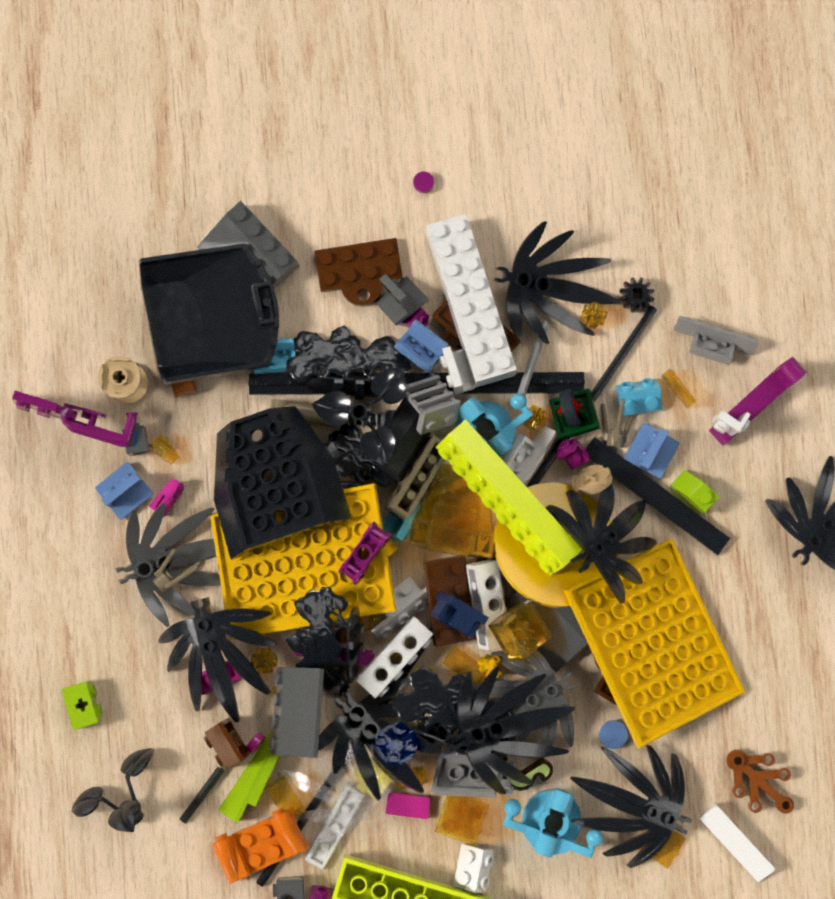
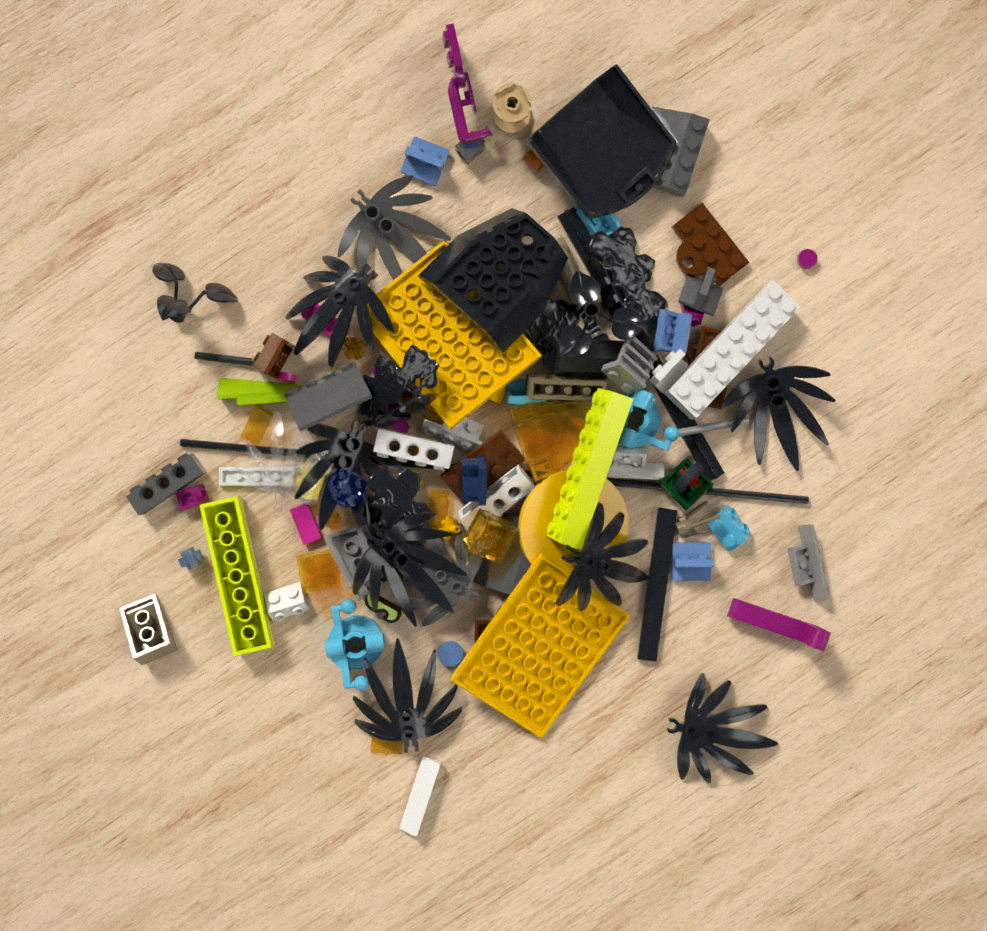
camera: 60 degrees right, 5 degrees up
(74, 696) = (230, 229): lime brick -> none
(164, 449) = (475, 173): clear yellow cone -> none
(166, 581) = (372, 234): dark tan plant -> none
(168, 495) = (440, 198): dark pink hinge -> none
(260, 845) = (210, 425): orange piece -> none
(355, 566) = (495, 379): magenta piece -> none
(537, 419) = (665, 456): clear yellow gear -> none
(572, 453) = (654, 500): magenta bracket -> none
(591, 480) = (640, 526): tan tile -> none
(594, 315) = (775, 455): clear yellow gear -> none
(628, 294) = (809, 473): black gear -> none
(678, 388) = (753, 555): clear yellow tile -> none
(694, 491) = (677, 613): lime slope -> none
(725, 423) = (746, 611): white bracket -> none
(756, 779) = (478, 784): dark orange plant -> none

